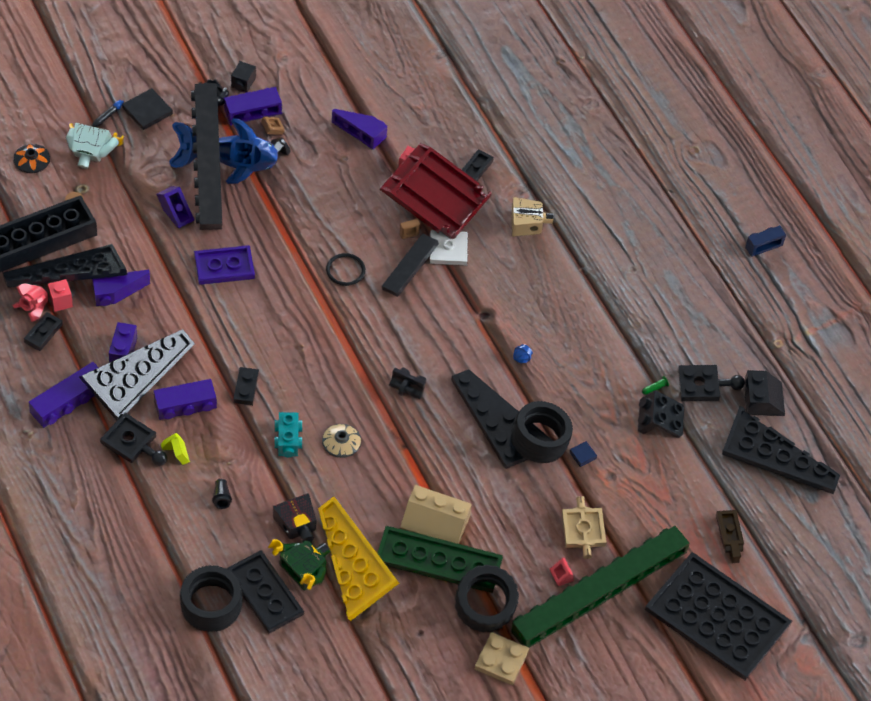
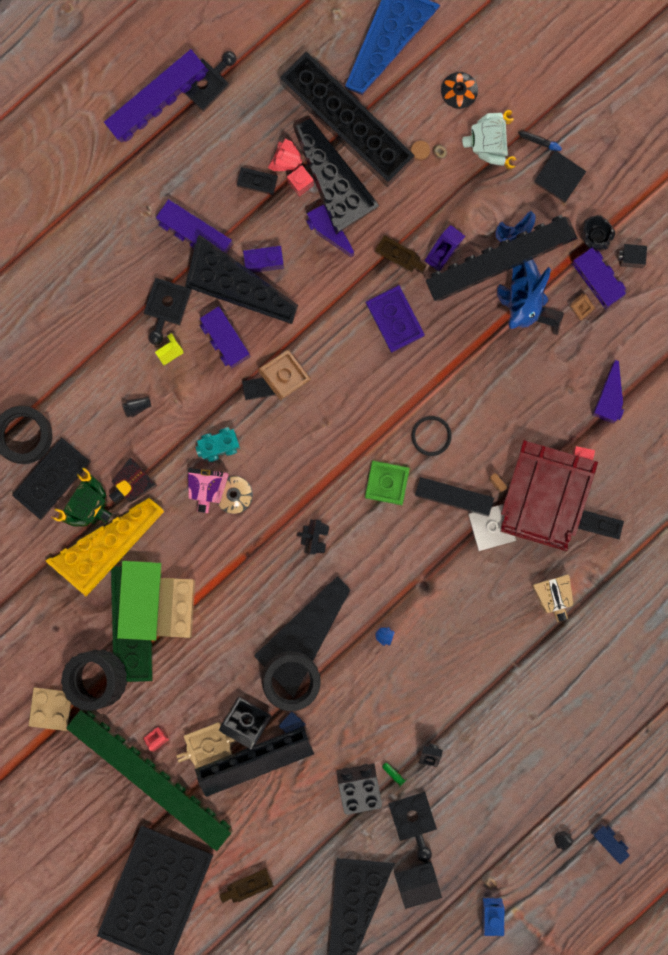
camera: 85 degrees right, 30 degrees up
(166, 242) = (399, 255): none -> dark brown hinge
(242, 361) = (284, 375): none -> medium nougat tile
(326, 454) = (206, 487): none -> torso
(377, 314) = (387, 483): none -> bright green tile
(419, 540) = (139, 600): none -> bright green tile
(570, 484) = (256, 722): none -> black brick
(610, 489) = (254, 762): none -> black brick
(646, 345) = (430, 755): none -> black hinge
(753, 274) = (563, 840): none -> black plate
(811, 342) = (492, 917): none -> blue torso

